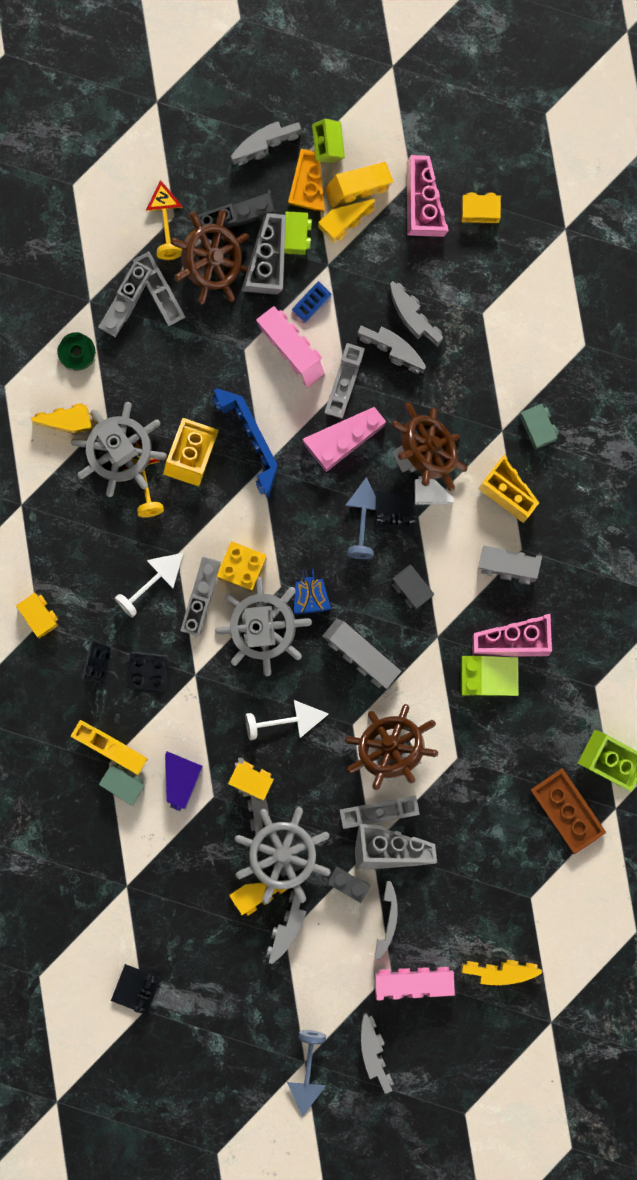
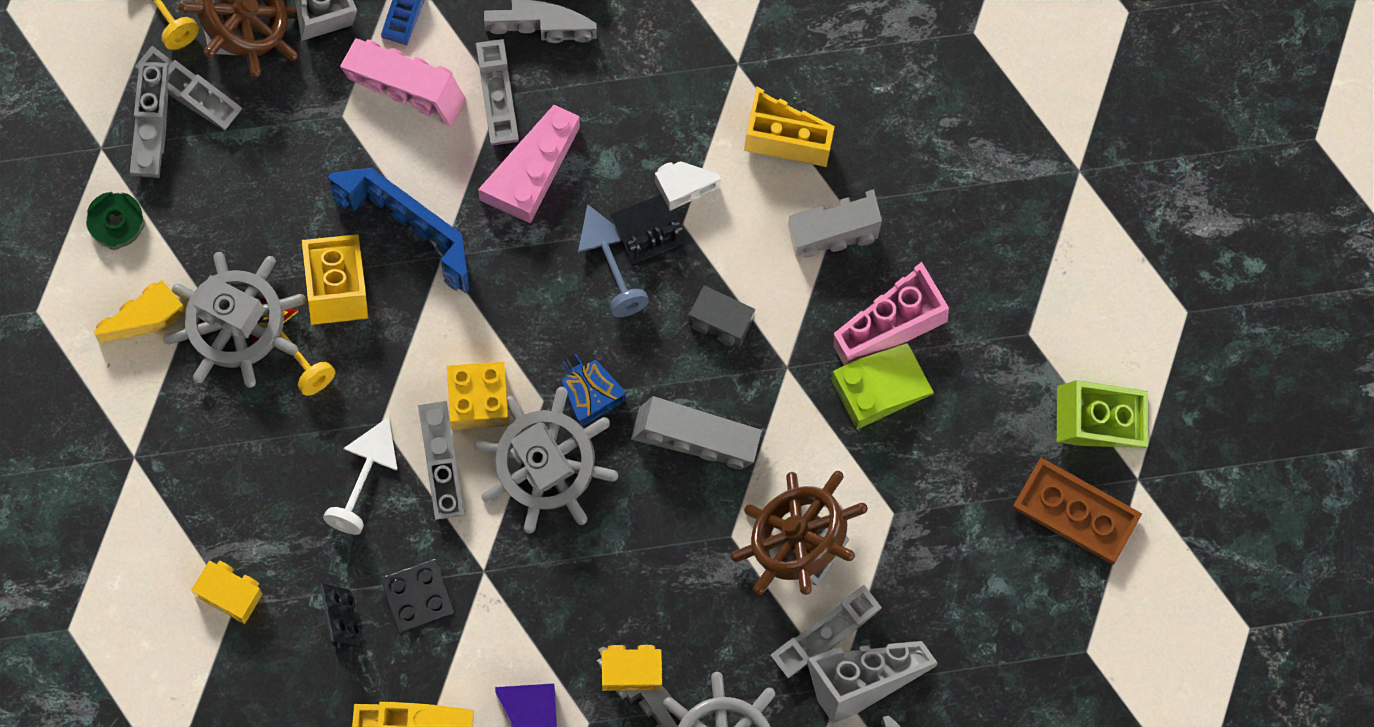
camera: 25 degrees left, 10 degrees down
(305, 717) = (663, 555): white piece -> none
(420, 450) = (650, 123): reddish brown brick -> none
(538, 426) = (783, 34): sand green brick -> none

